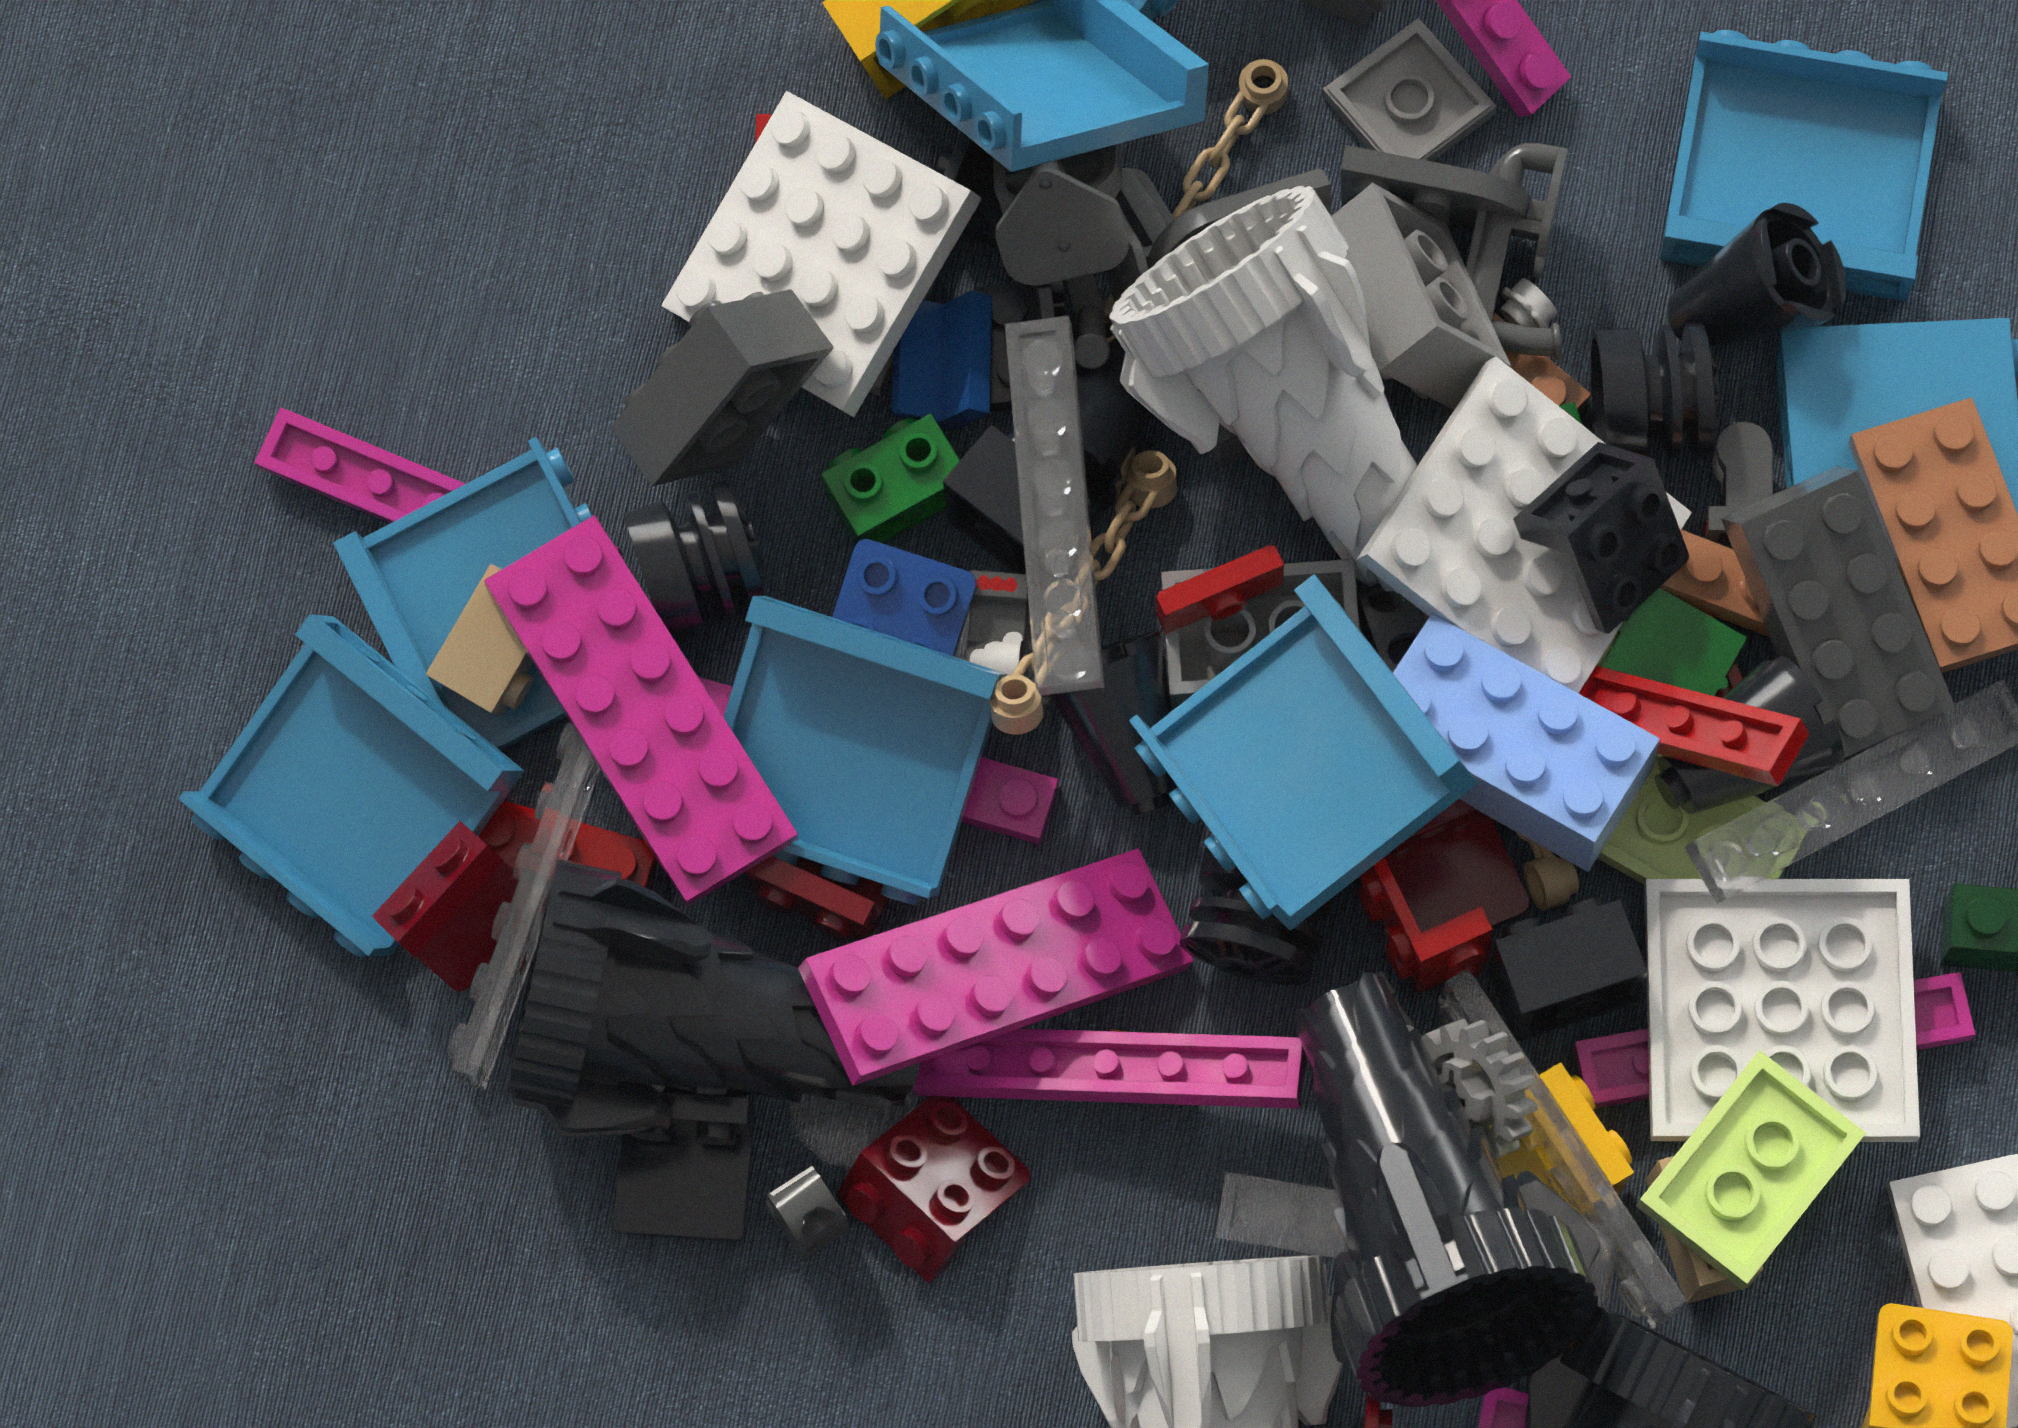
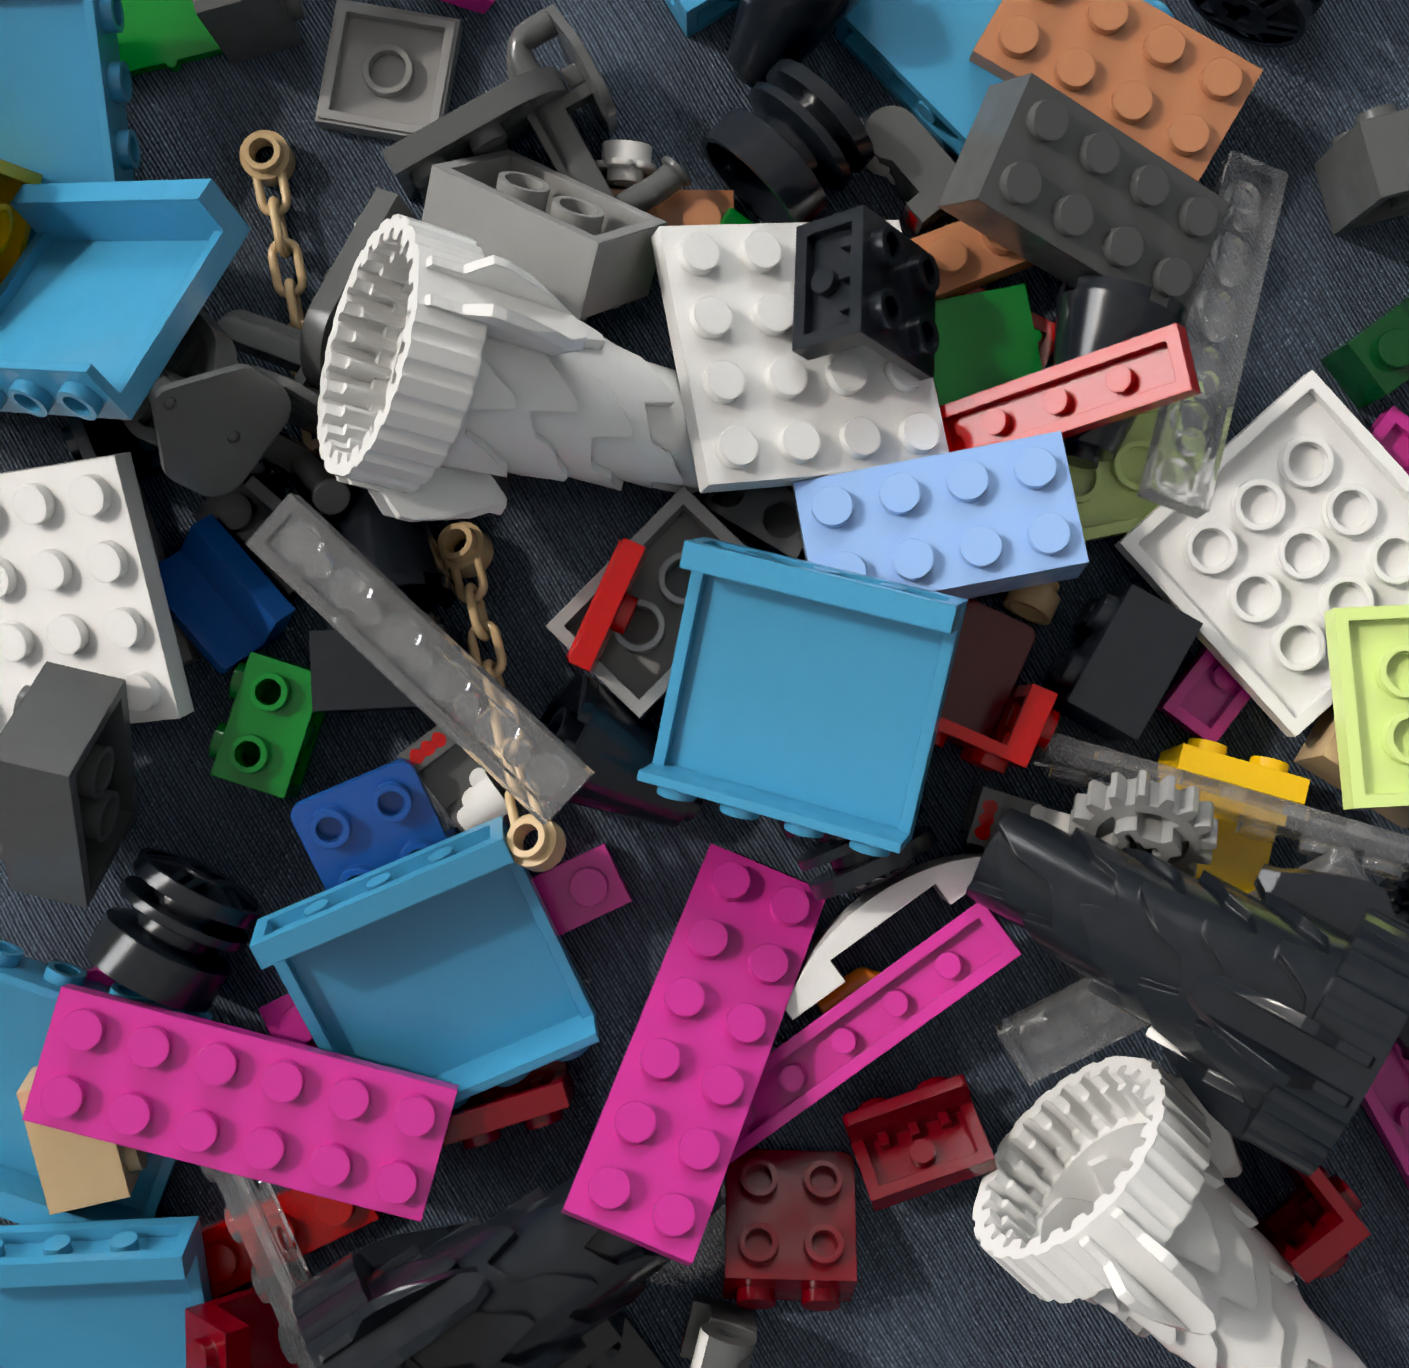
camera: 50 degrees left, 15 degrees up
(1094, 1196) = (918, 1141): none -> dark red bracket
(1191, 996) = (818, 973): none -> white slope

